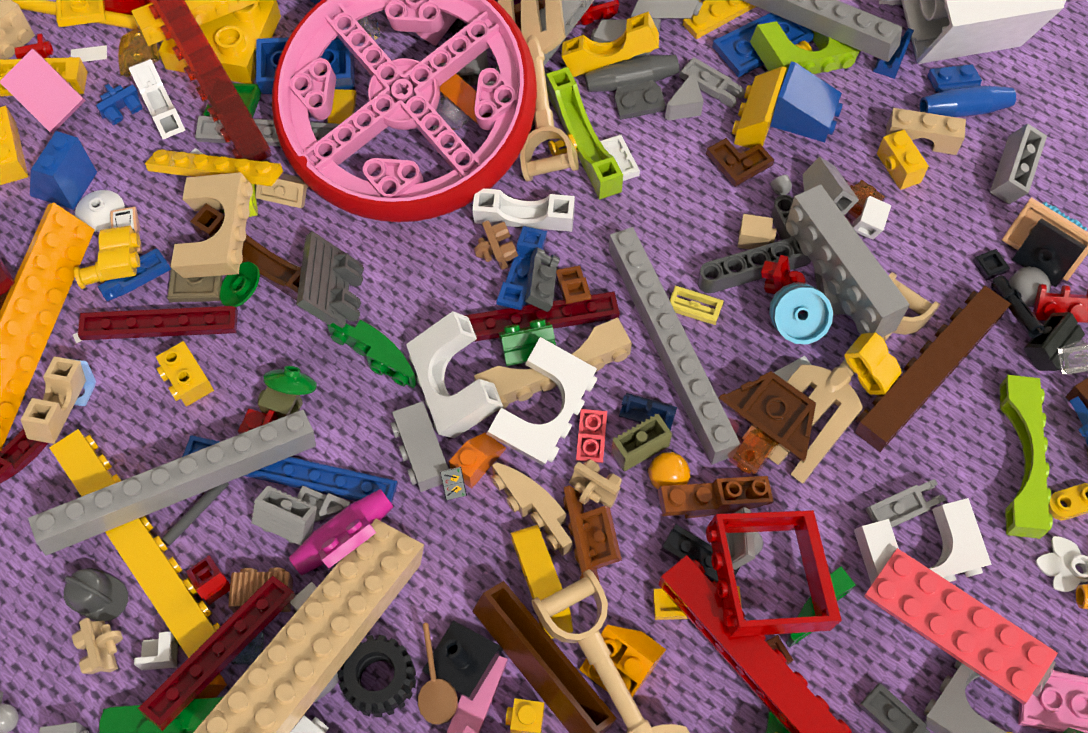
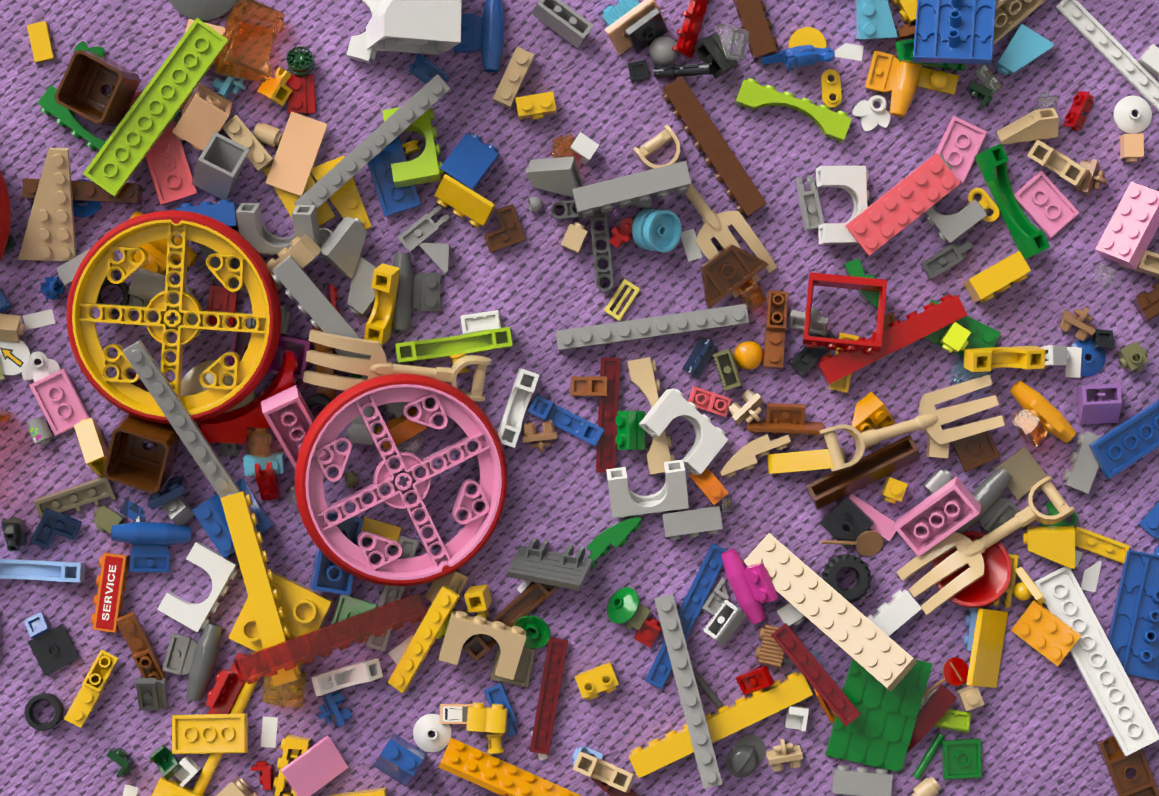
camera: 80 degrees left, 25 degrees up
(271, 216) = (478, 600): none -> yellow brick
(541, 279) = (580, 408): dark grey plate -> none
(873, 363) = (708, 193): yellow brick -> none

